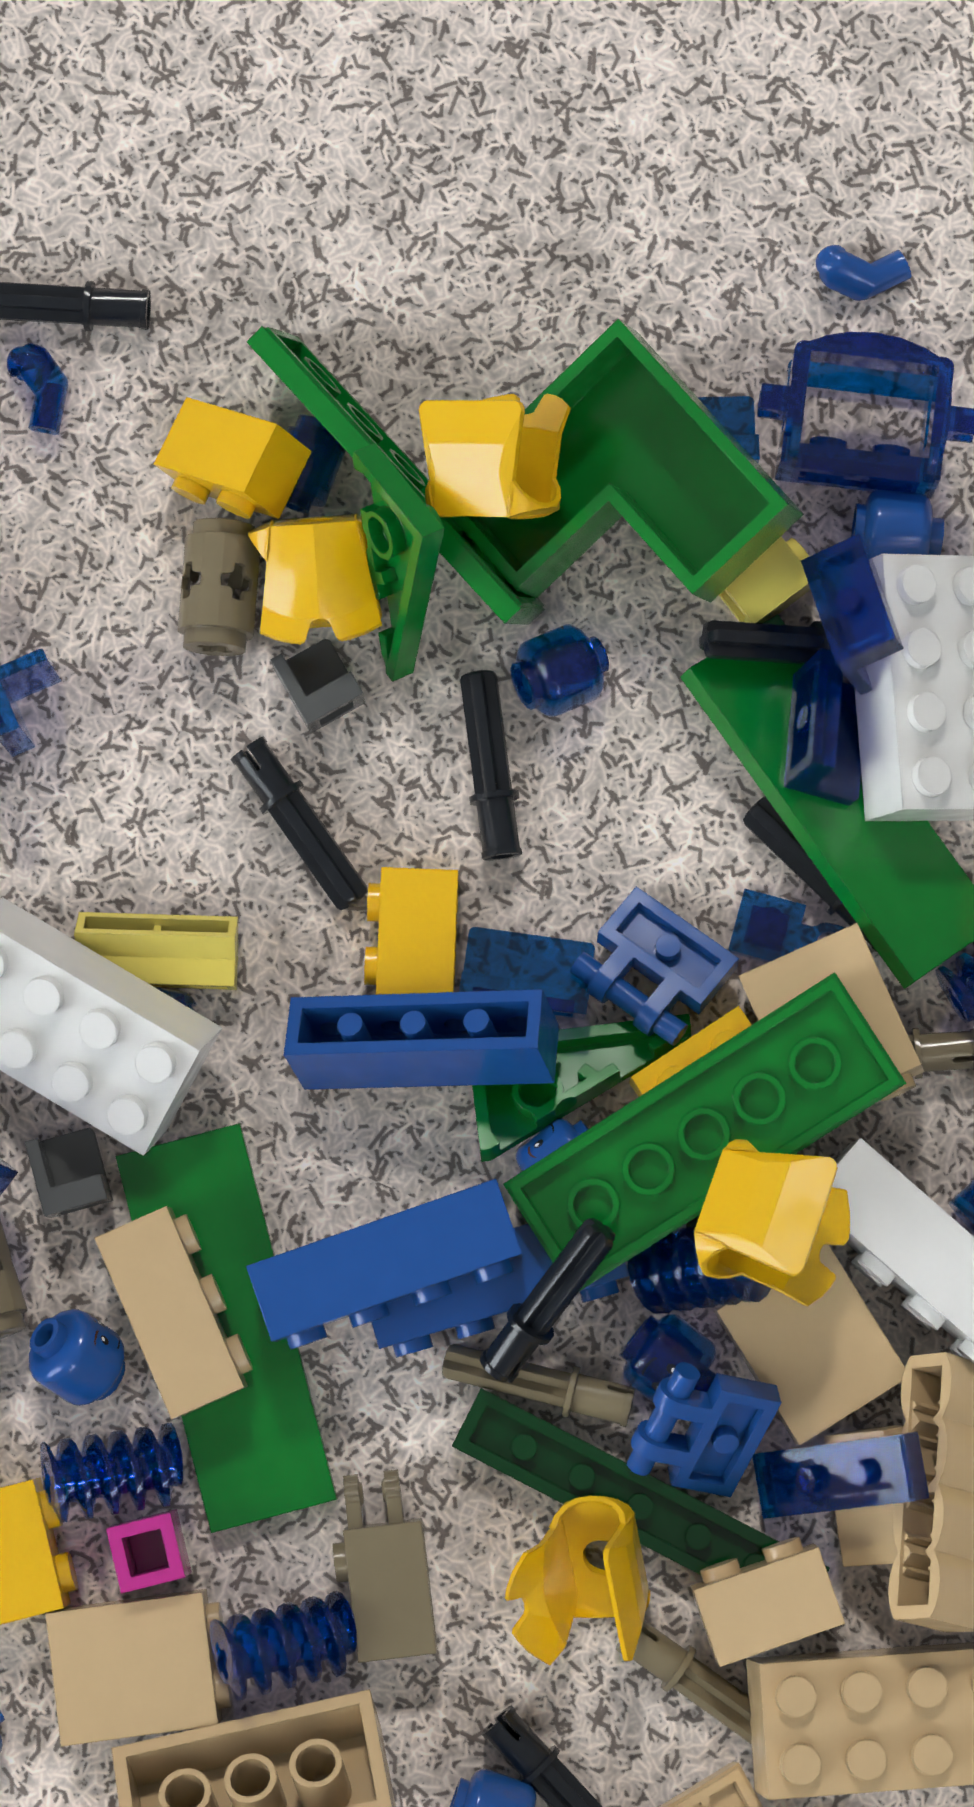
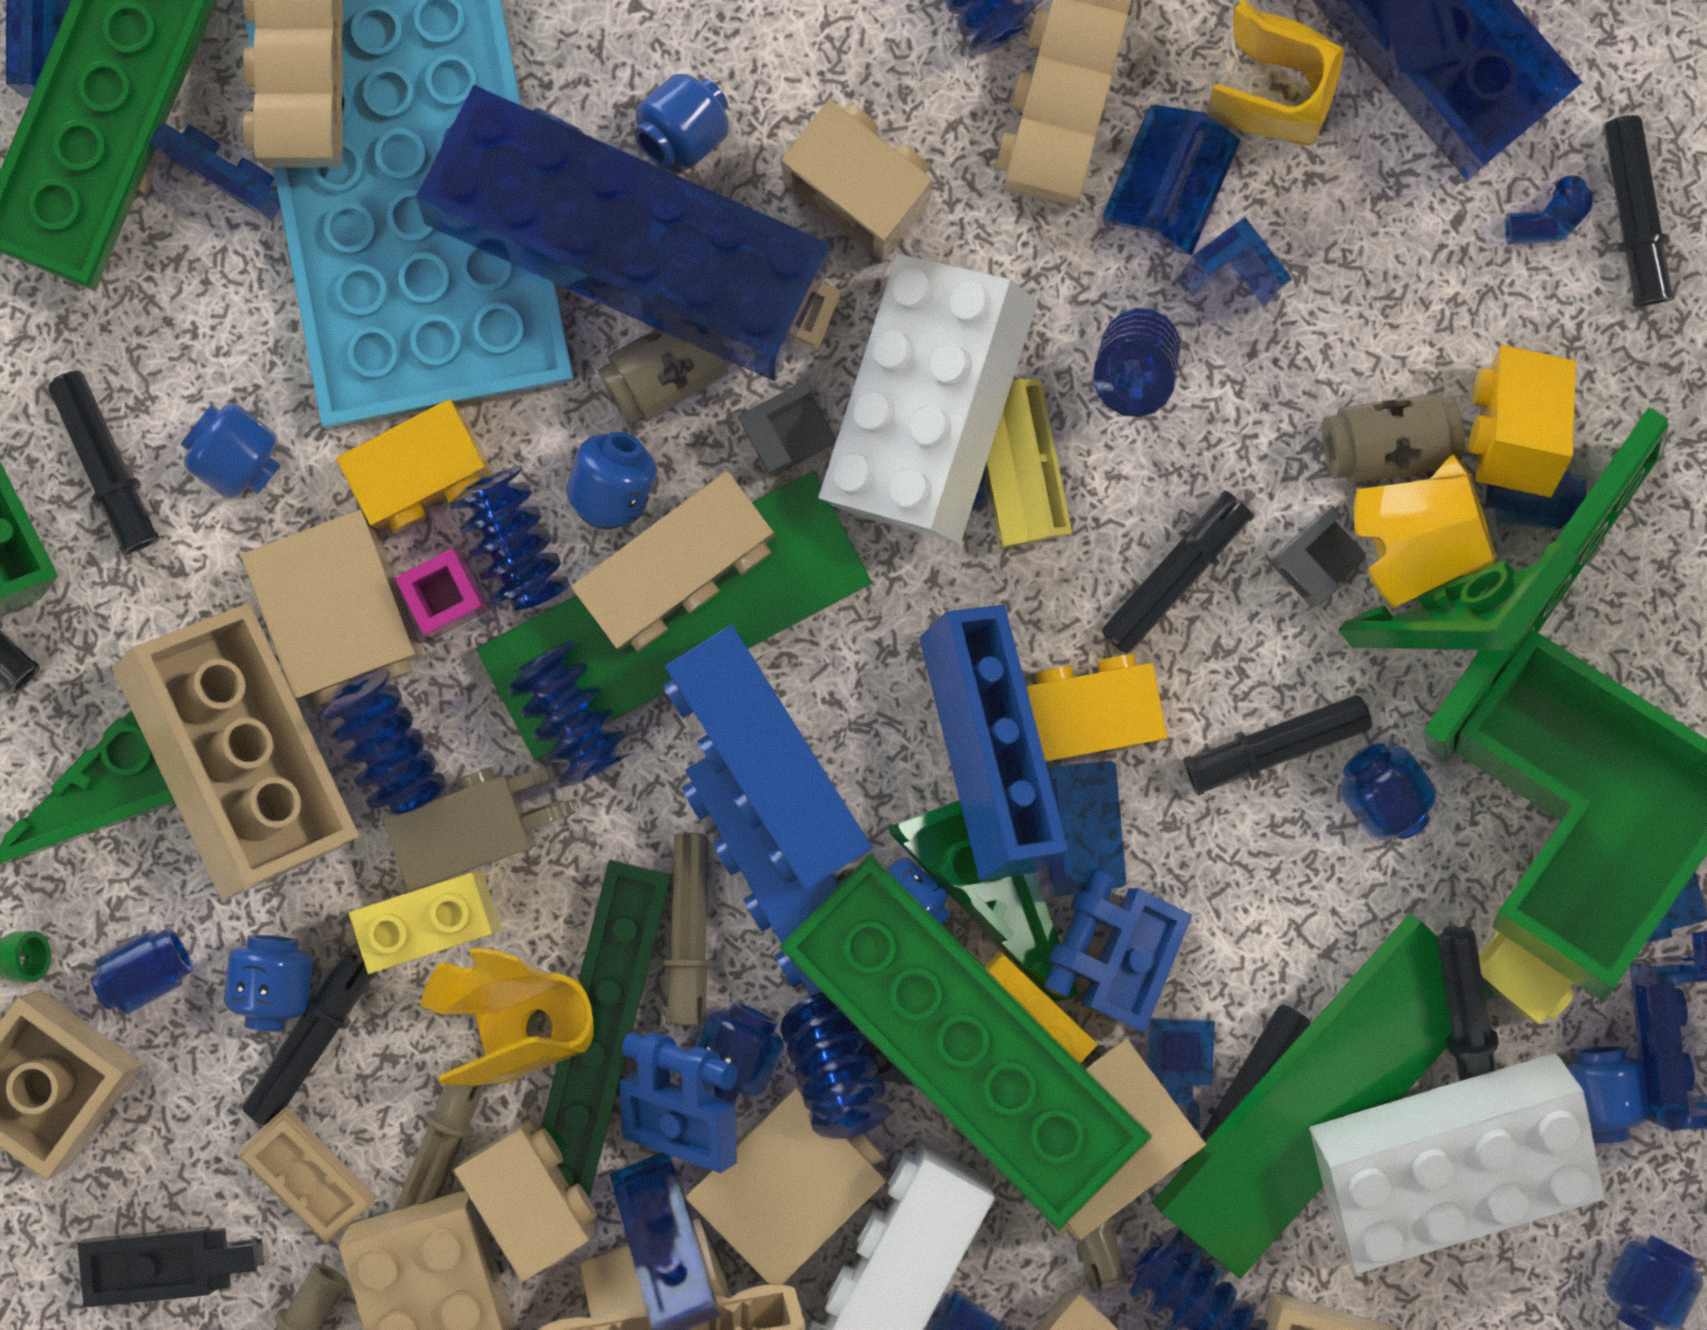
camera: 75 degrees right, 5 degrees up
(61, 808) = (1143, 337): none -> clear blue piece
(299, 1452) = (567, 715): none -> clear blue piece
(469, 1644) = (425, 921): none -> light yellow brick
(492, 457) = (1592, 681): yellow piece -> none
(532, 1321) = (748, 915): black axle -> none
(771, 1219) = (892, 1130): yellow piece -> none
(823, 733) = (1389, 1066): clear blue panel -> none
(852, 608) = (1521, 1072): clear blue panel -> none

